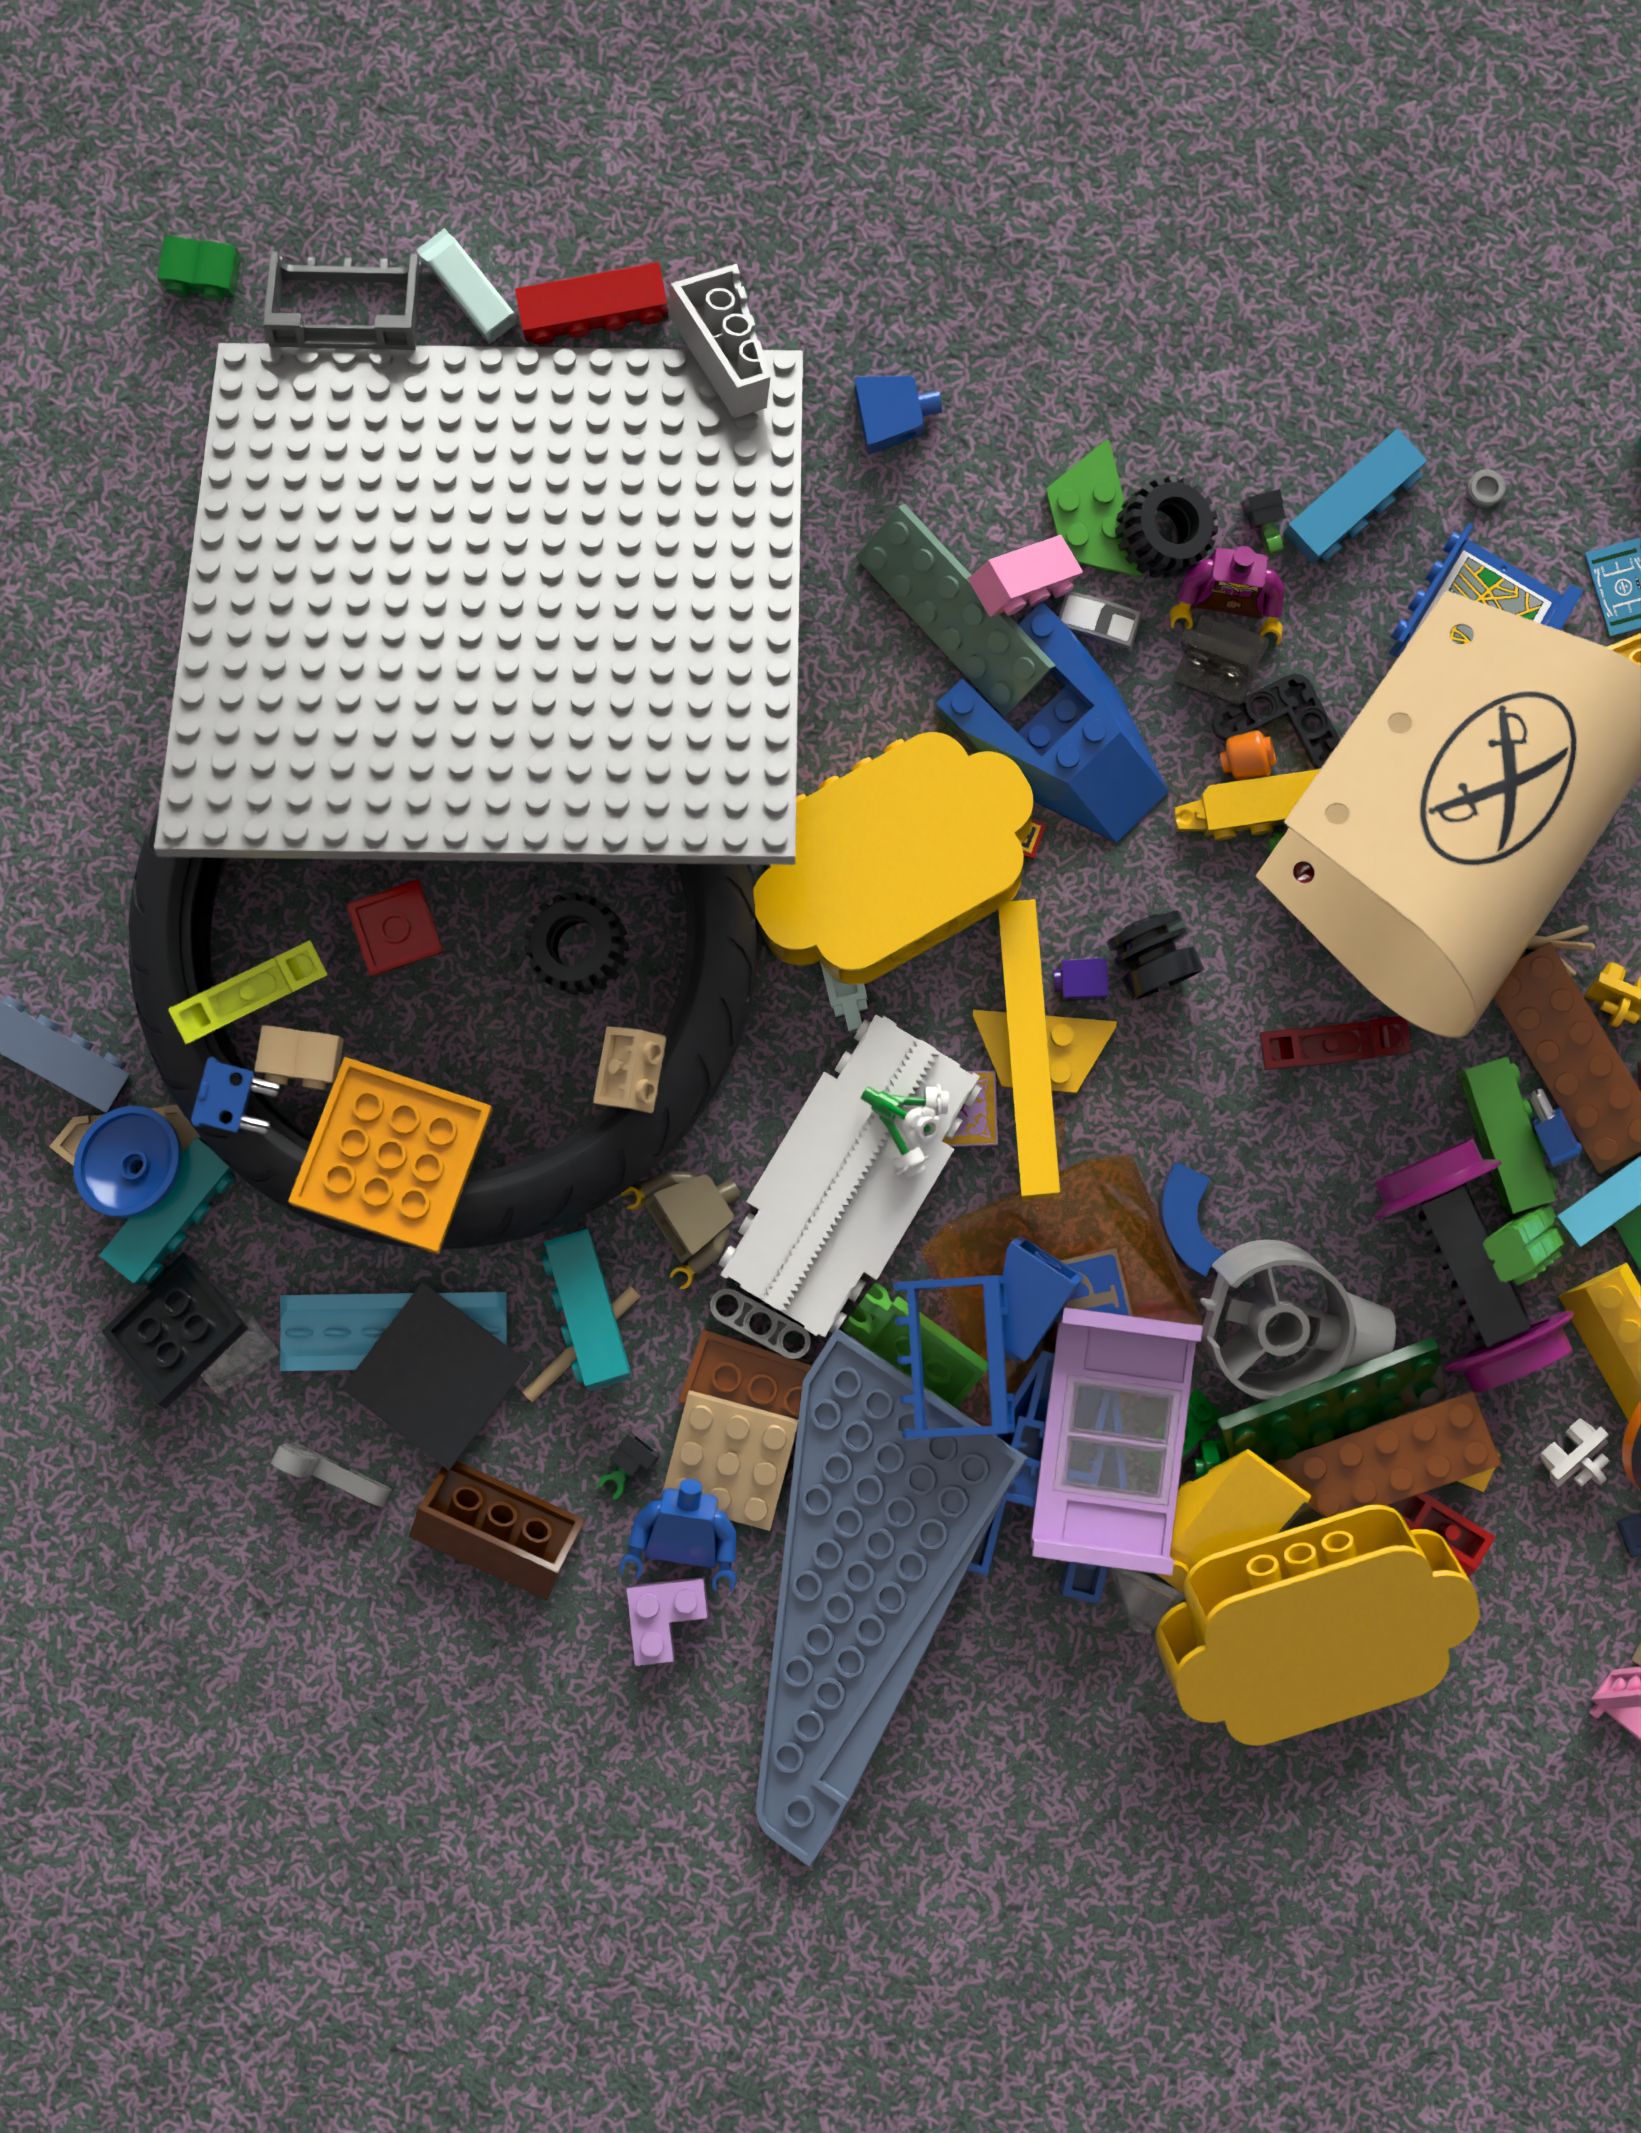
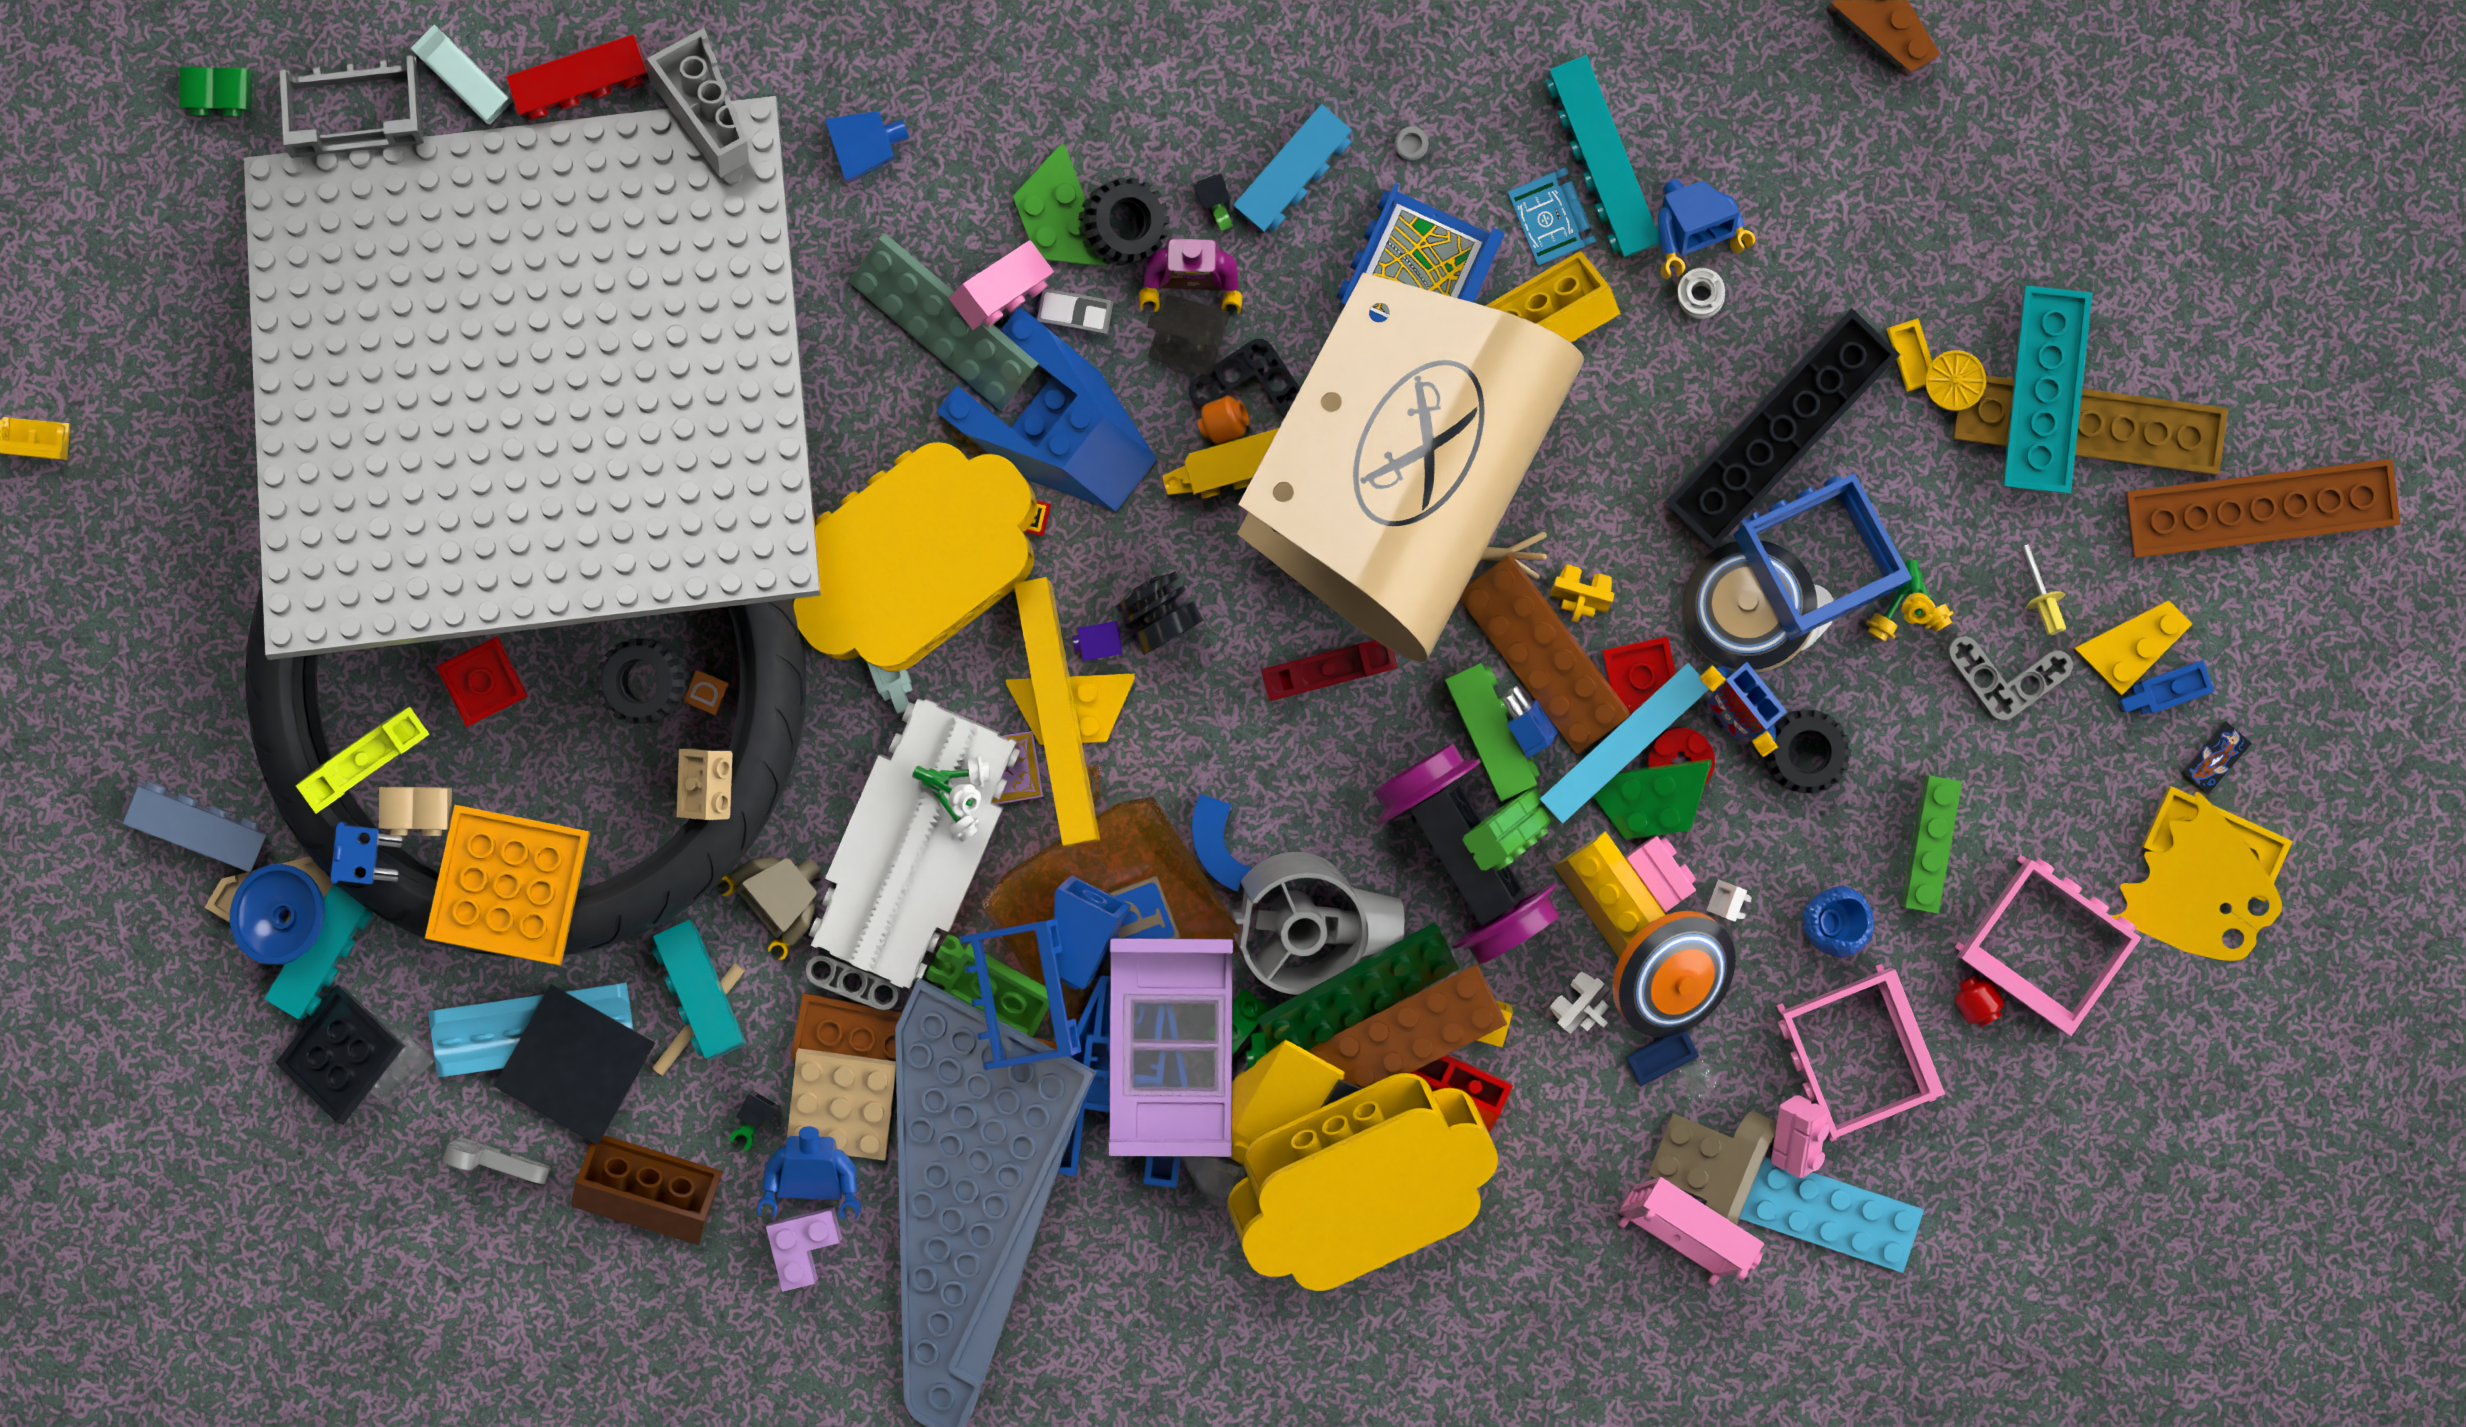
camera: 10 degrees left, 5 degrees up
(645, 967) = (706, 692): none -> reddish brown tile

